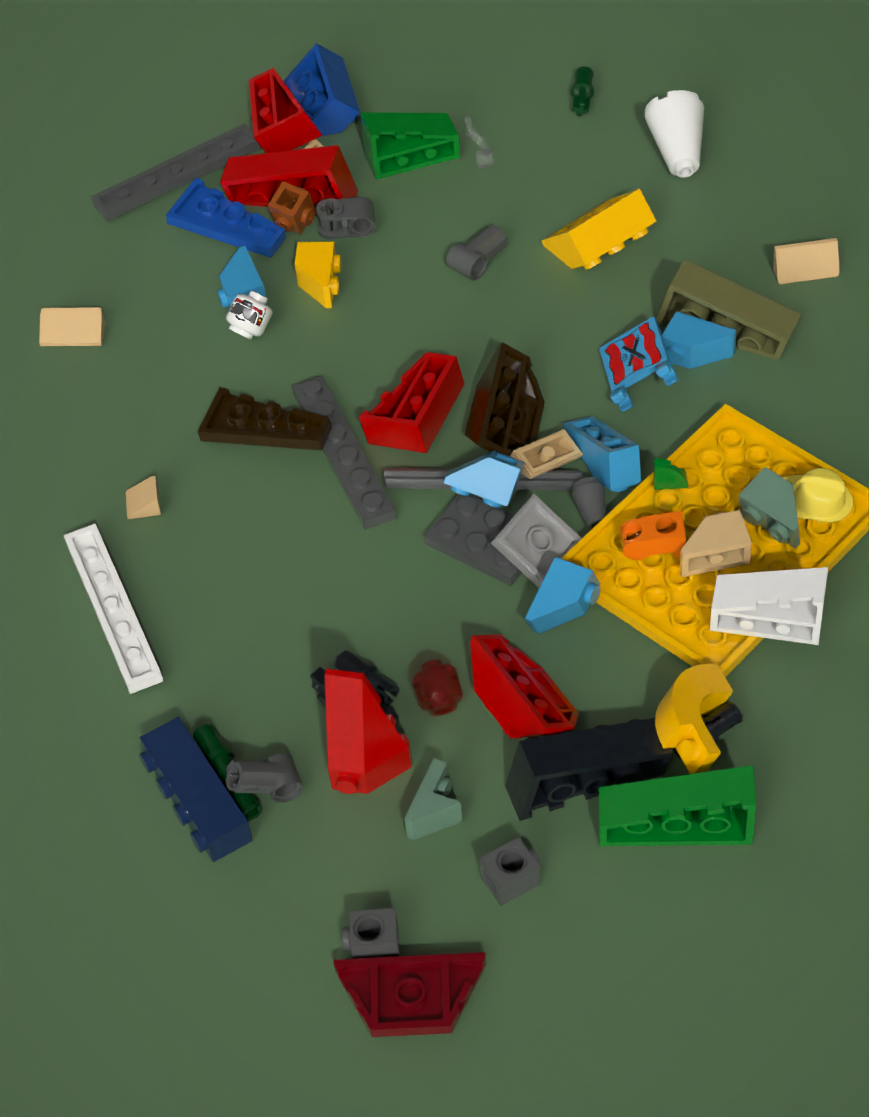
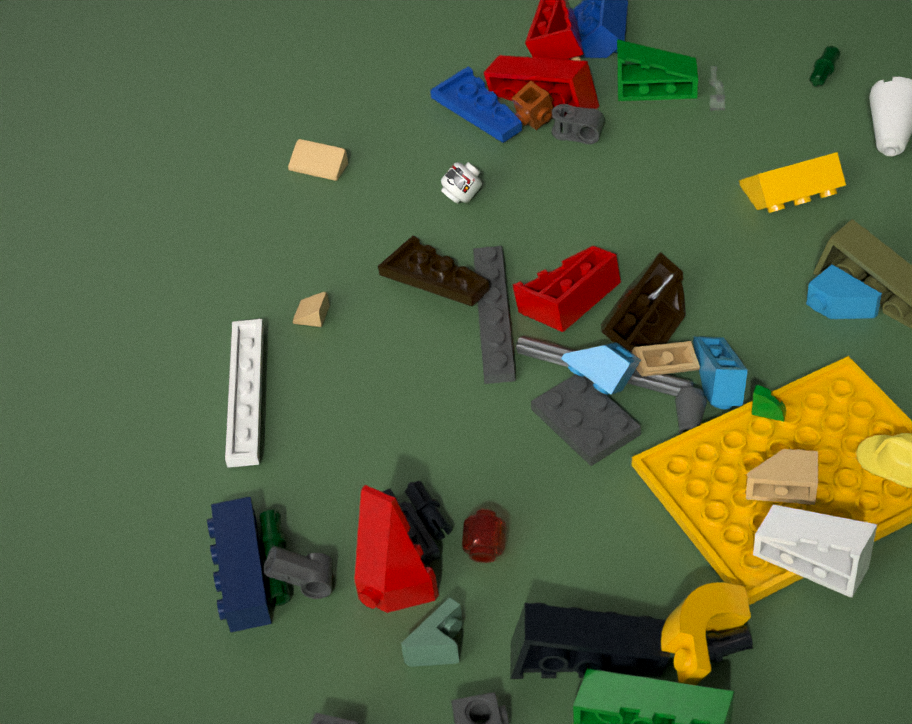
camera: 20 degrees right, 5 degrees down
(174, 172) = (451, 59): dark grey plate -> none
(238, 278) = (467, 149): dark azure slope -> none
(317, 269) = (535, 160): yellow slope -> none
(473, 257) = (671, 180): dark grey piece -> none
(518, 690) = (554, 558): red wedge -> none
(535, 539) = (624, 430): light grey tile -> none
(562, 596) = (626, 485): dark azure slope -> none
(634, 358) = (780, 295): dark azure flag -> none
(653, 535) = (731, 453): orange leg -> none
(771, 504) = (854, 456): sand green slope -> none

